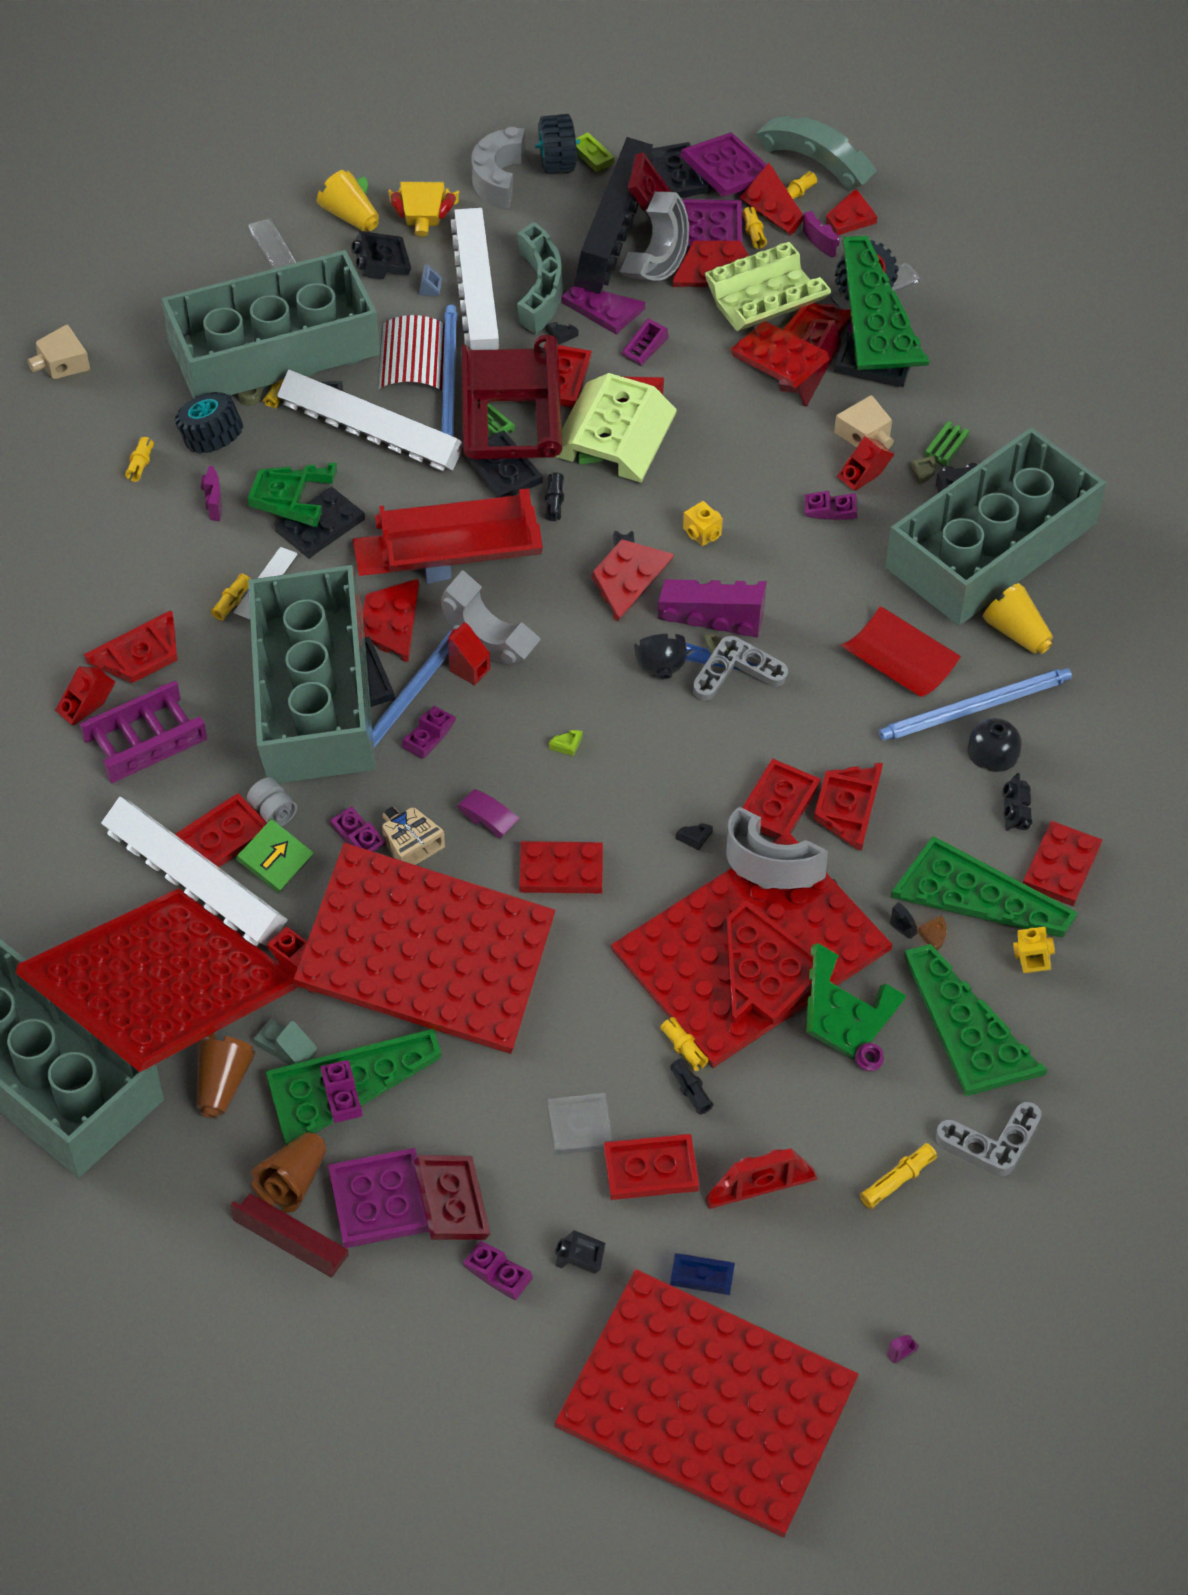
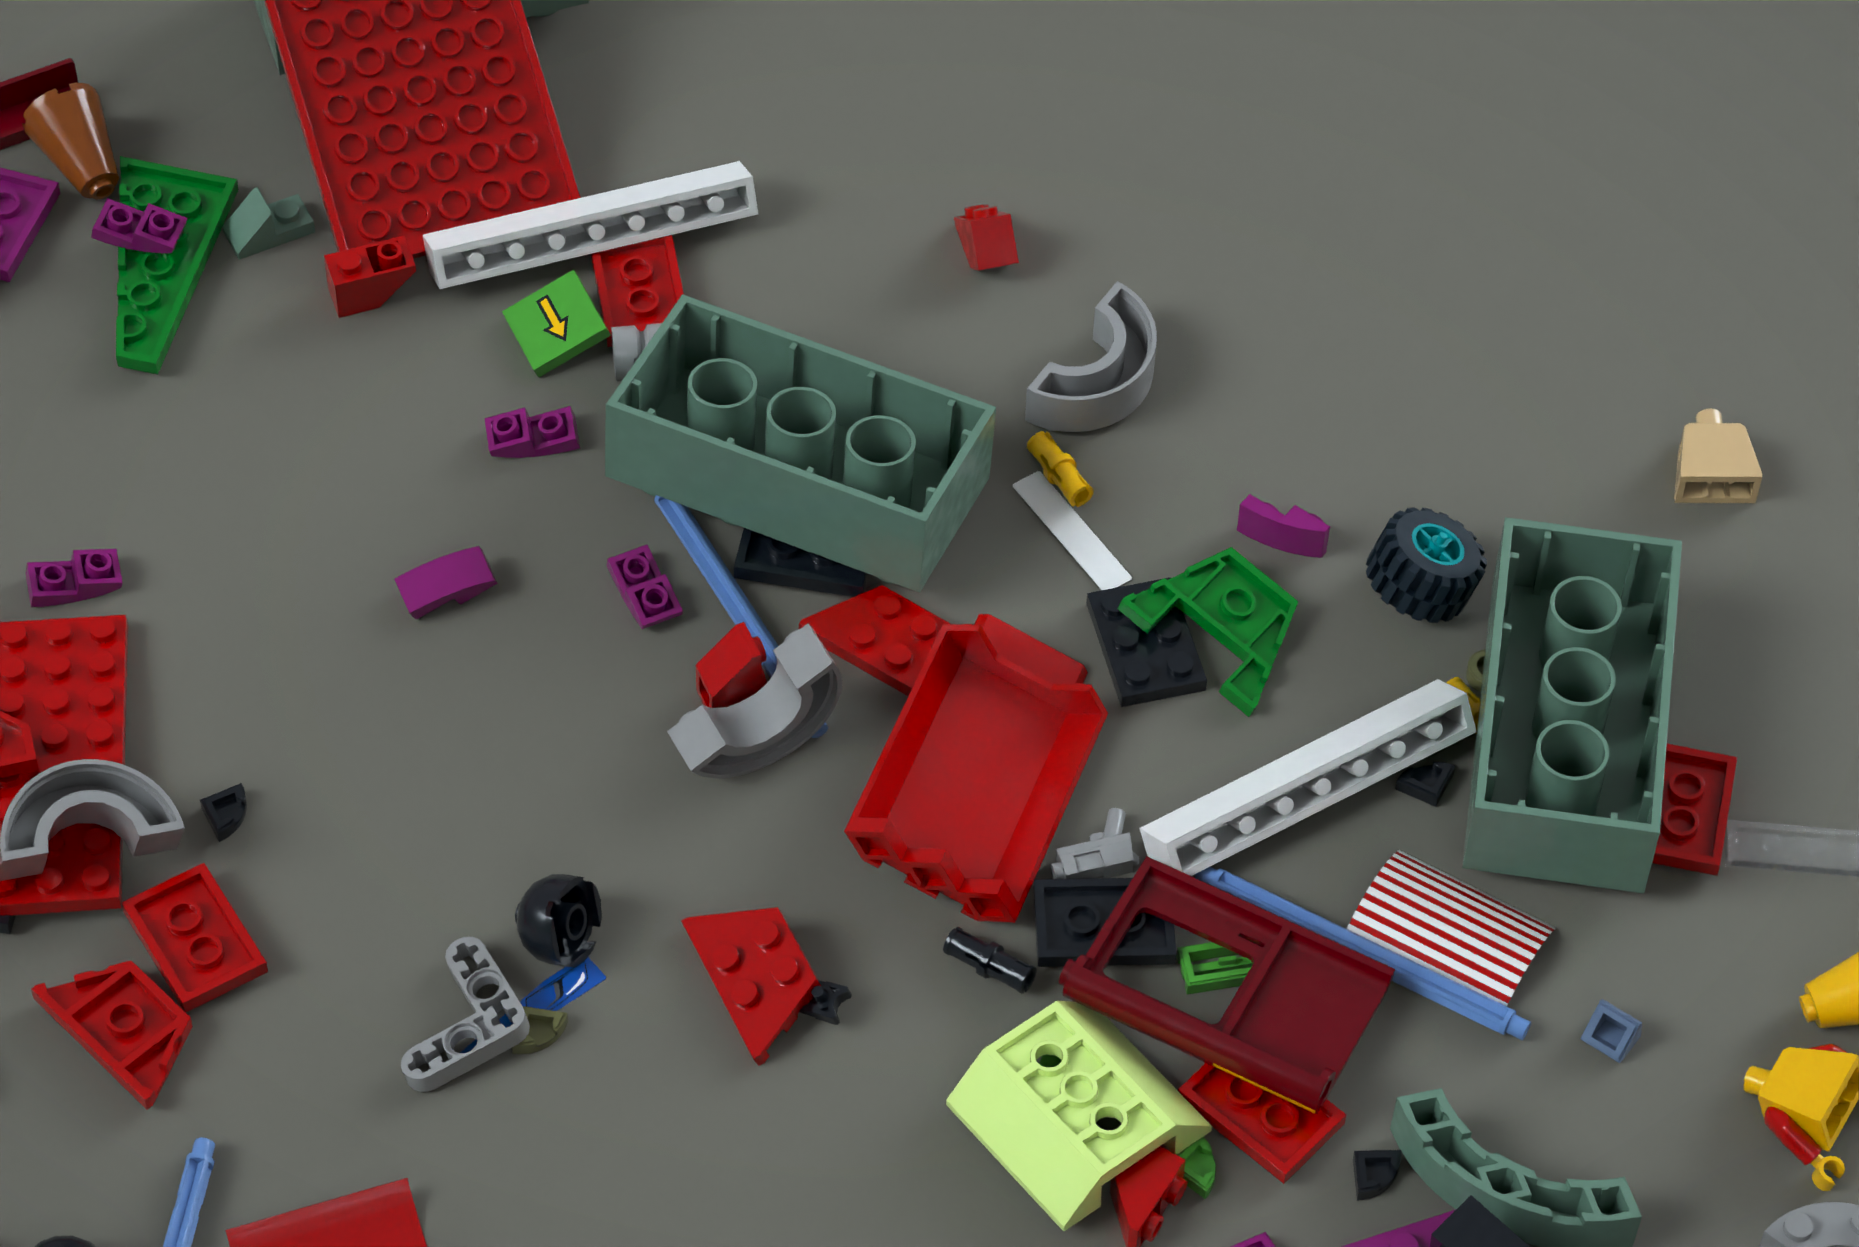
camera: 120 degrees right, 0 degrees up
(138, 651) = (1027, 324): red wing -> none
(139, 459) = (1419, 473): yellow pin -> none
(150, 751) = (840, 289): magenta fence -> none
(152, 589) = (1107, 389): none -> light grey brick
(220, 1072) = (266, 134): dark orange cone -> none
(380, 255) = (1713, 981): black plate -> none
(411, 835) = (475, 476): tan torso -> none
(425, 948) = (273, 402): red plate -> none
(462, 483) = (1103, 855): none -> light grey piece
(476, 280) = (1569, 1092): white brick -> none
(561, 867) = (297, 629): red plate -> none
(567, 742) = (503, 743): lime tile -> none
(600, 987) = (64, 582): none -> magenta slope
(702, 523) = (779, 1121): yellow brick -> none
(714, 605) = (601, 1043): magenta wedge -> none

